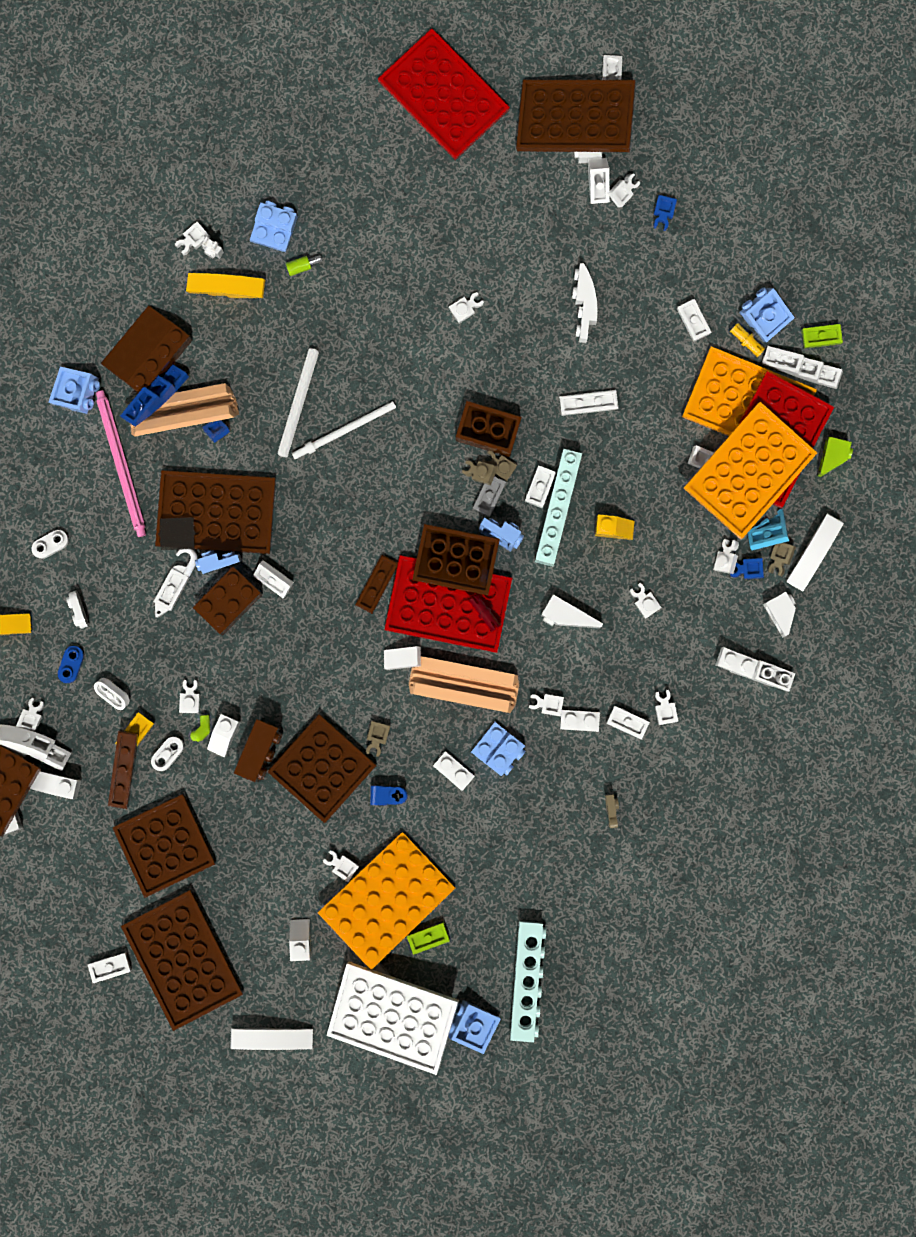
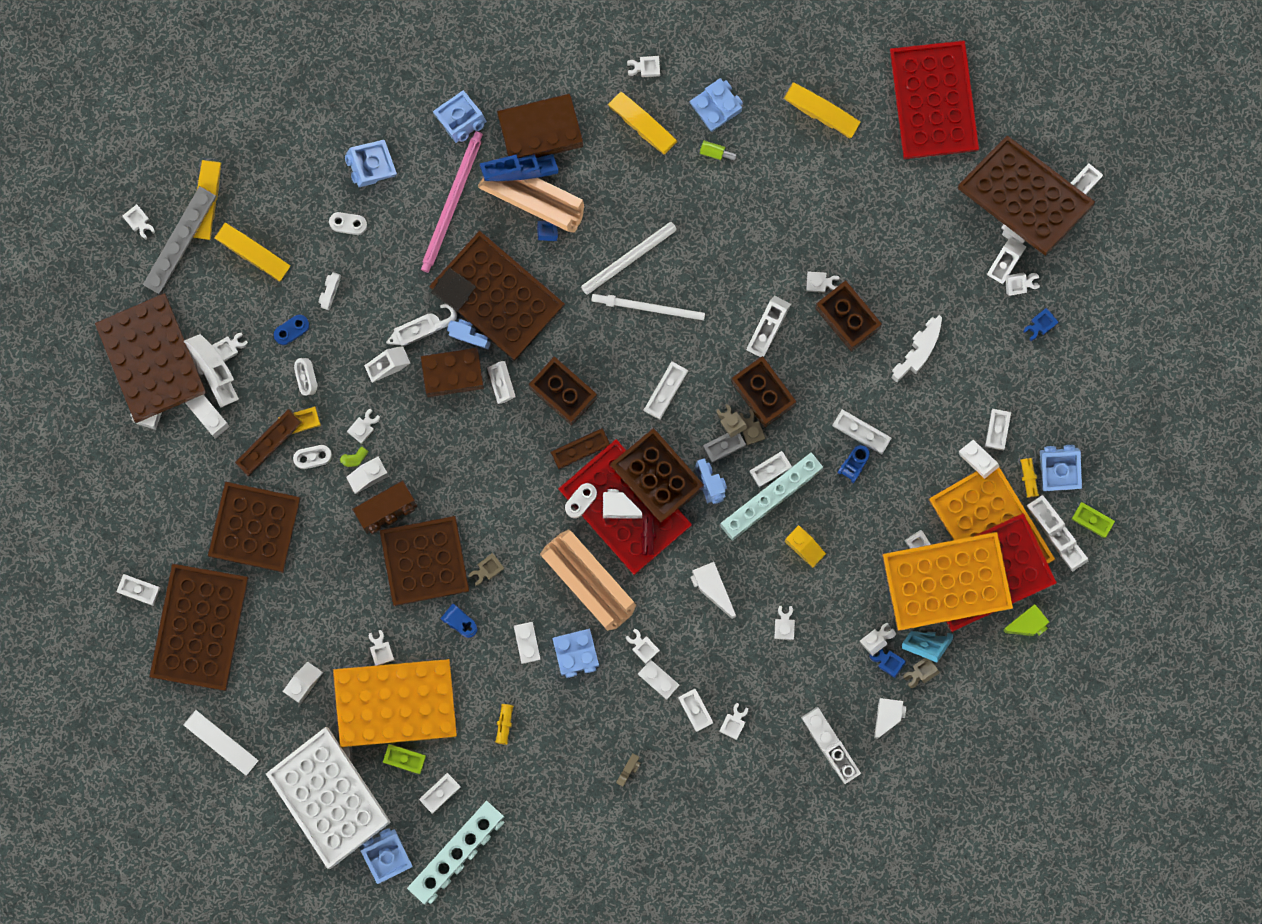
camera: 40 degrees right, 5 degrees down
(30, 482) = (370, 163): none -> light blue plate
(169, 633) = (387, 363): none -> white slope
(211, 248) = (653, 86): white plate -> none
(328, 549) = (563, 391): none -> reddish brown brick
(361, 168) = (821, 109): none -> yellow slope
(402, 658) = (555, 521): white tile -> none
(409, 486) = (665, 390): none -> white tile
(410, 626) = (581, 500): none -> white plate
(444, 607) = (618, 505): none -> white slope
(451, 374) = (768, 326): none -> white slope
(477, 943) = (440, 793): none -> white plate
(485, 849) = (504, 724): none -> yellow pin
(508, 317) = (848, 316): none -> reddish brown brick
(604, 435) = (854, 464): none -> blue piece
(697, 355) = (978, 459): none -> white plate
(815, 552) = (952, 688): white slope -> none

